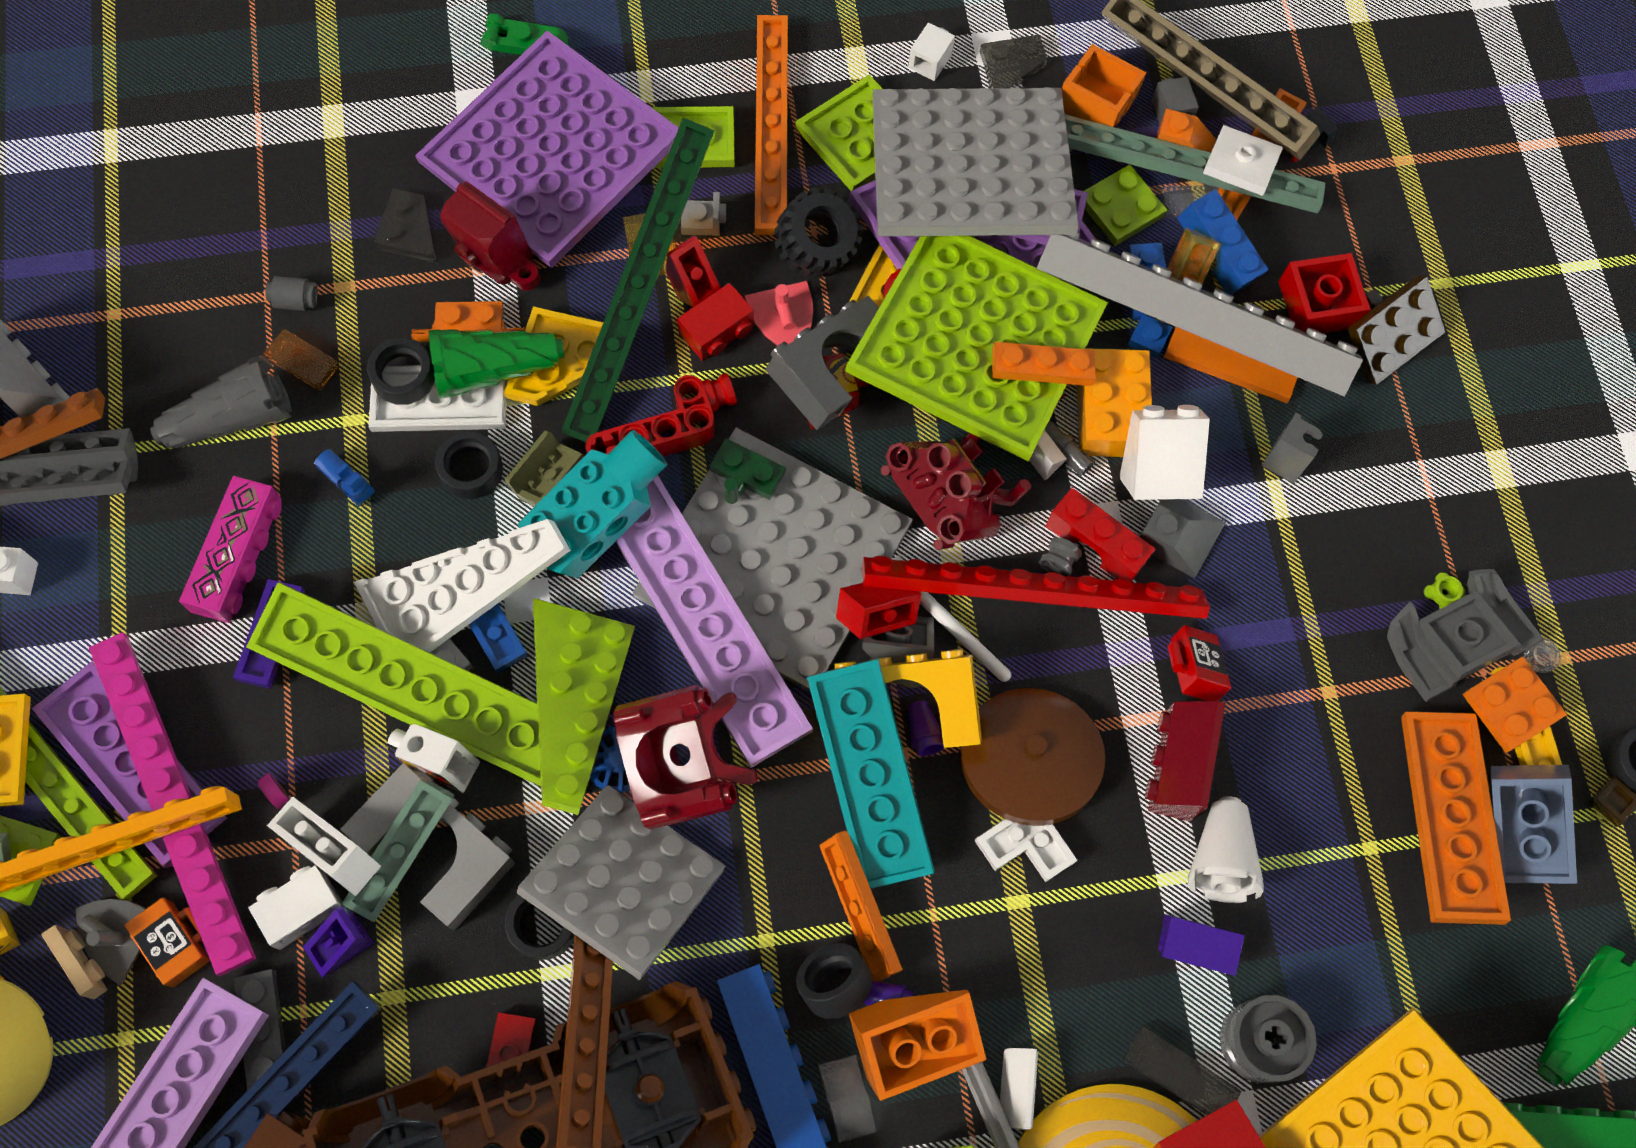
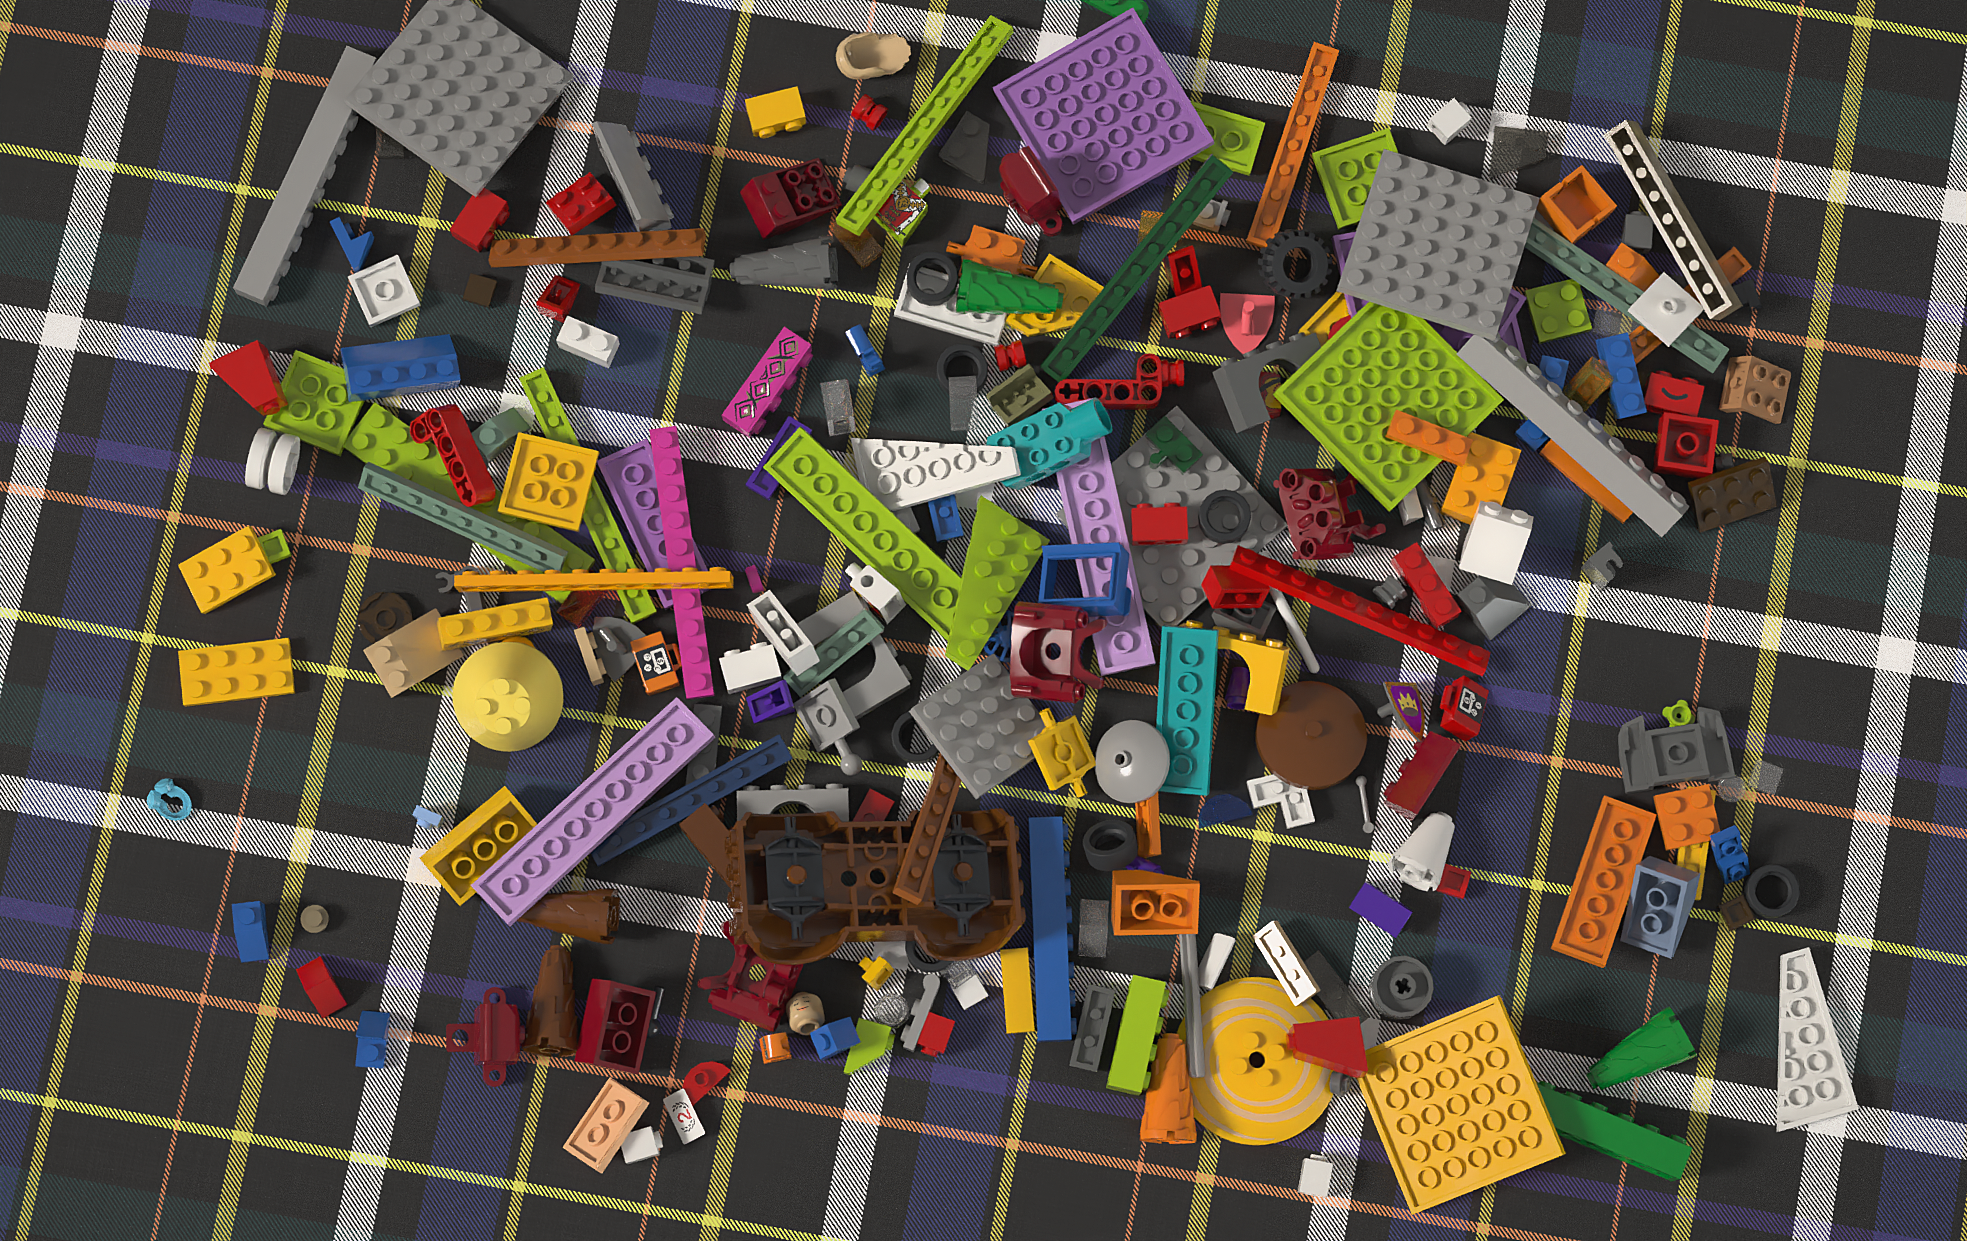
camera: 20 degrees right, 10 degrees up
(54, 896) = (580, 605): none -> clear red slope
(167, 249) = (775, 112): none -> yellow brick
(206, 336) = (789, 197): none -> dark red slope
(260, 161) = (872, 55): none -> tan hair
(273, 219) = (869, 112): none -> red wheel
(322, 543) = (838, 407): none -> clear torso
(342, 216) = (924, 125): none -> lime plate
(342, 310) = (903, 210): none -> torso
(417, 941) = (828, 721): none -> light grey plate
(451, 1047) = (759, 801): none -> light grey arch
(480, 498) = (963, 403): none -> clear tile
(528, 427) = (1010, 355): none -> red wheel
(733, 880) = (1062, 752): none -> yellow plate
(742, 660) = (1119, 597): none -> blue piece
(761, 563) = (1159, 524): none -> red brick
(842, 505) = (1236, 499): none -> black tyre
(842, 858) = (1144, 764): none -> light grey dish
(957, 885) = (1221, 810): none -> clear blue plate
(1112, 1058) = (1286, 963): none -> plate
(1131, 686) = (1406, 707): none -> shield
(1141, 846) = (1368, 827): none -> light grey hinge
(1277, 878) = (1454, 881): none -> red plate
(1285, 245) = (1672, 395): none -> red brick
(1364, 214) = (1755, 388): none -> medium nougat bracket
(1572, 630) = (1765, 777): none -> clear tile
(1580, 733) = (1729, 854): none -> blue slope

